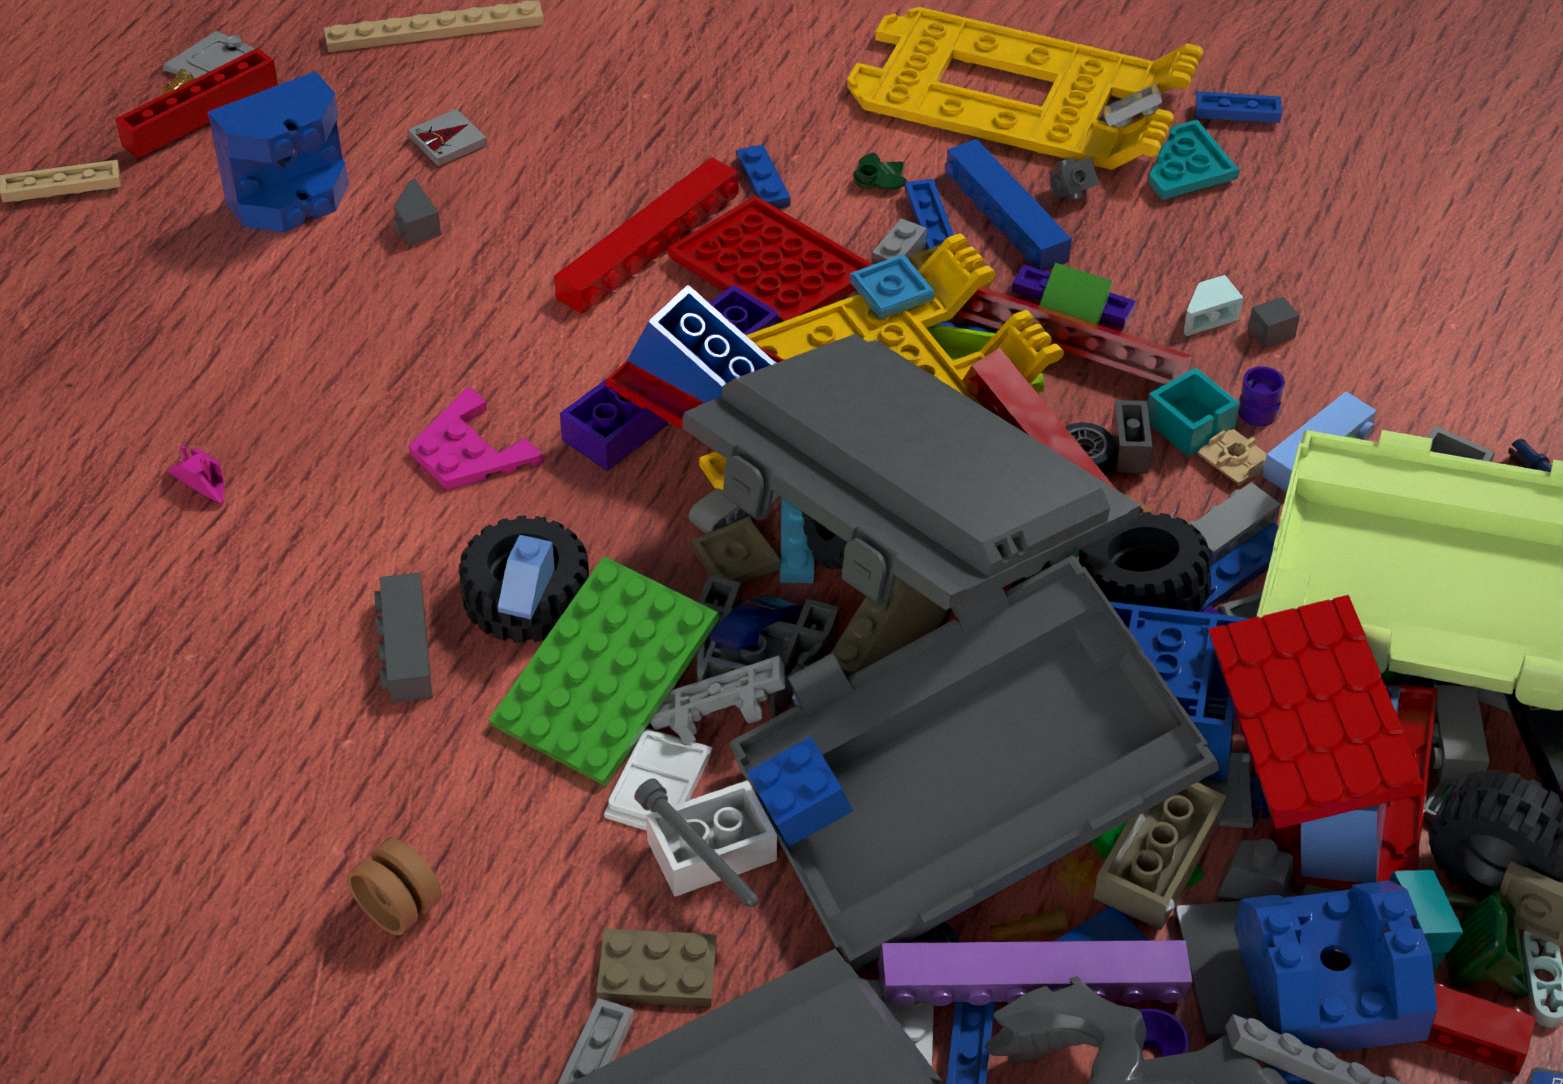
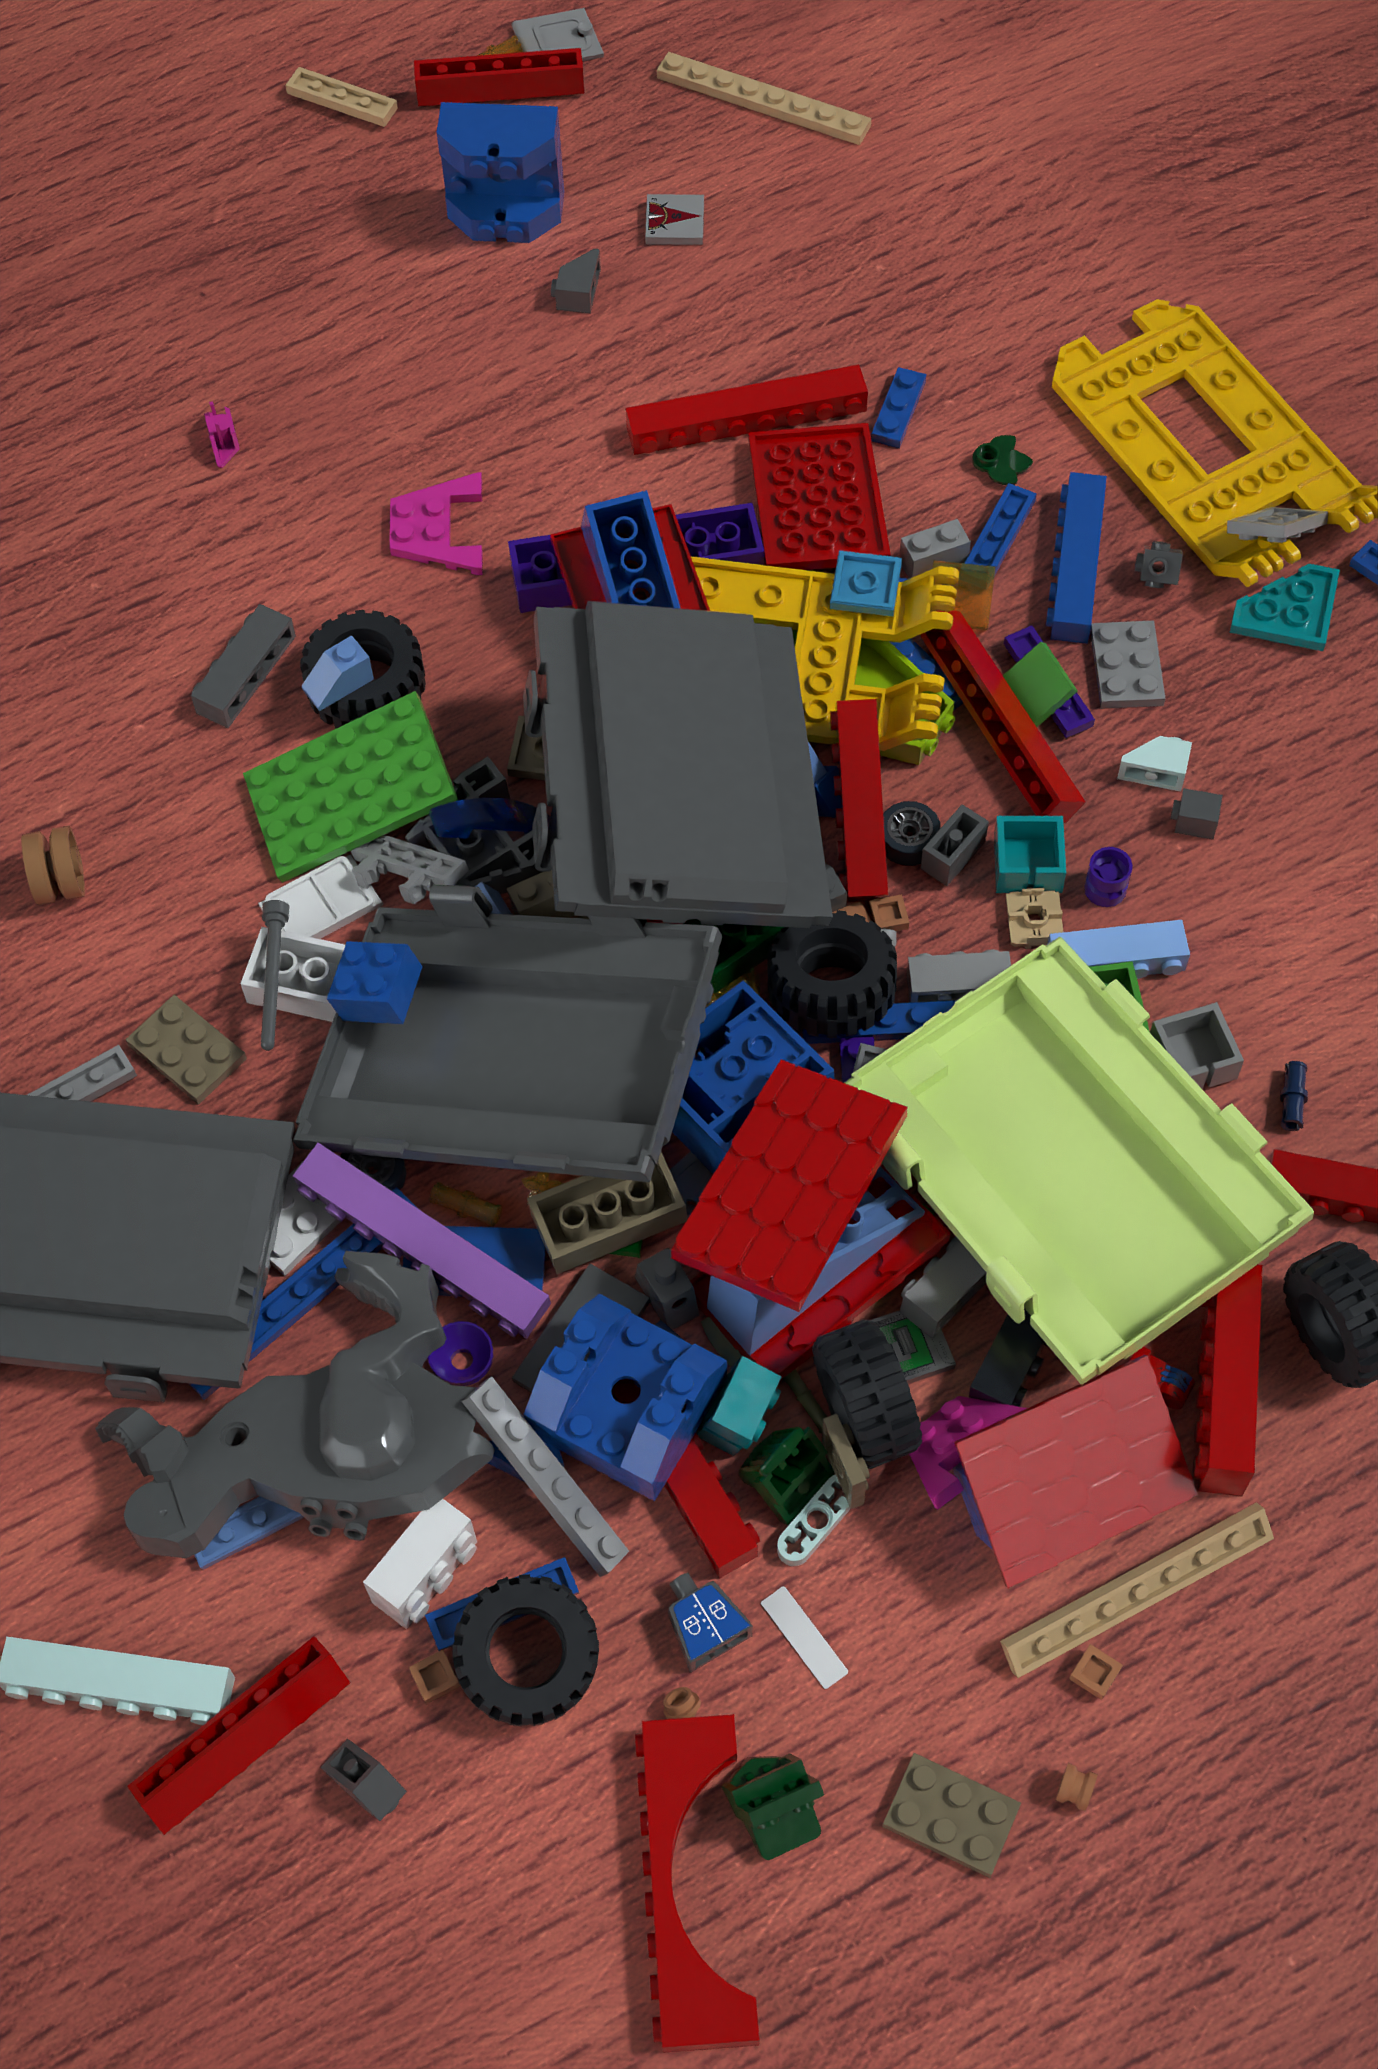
camera: 40 degrees right, 15 degrees up
(1116, 257) = (1127, 664): none -> light grey plate

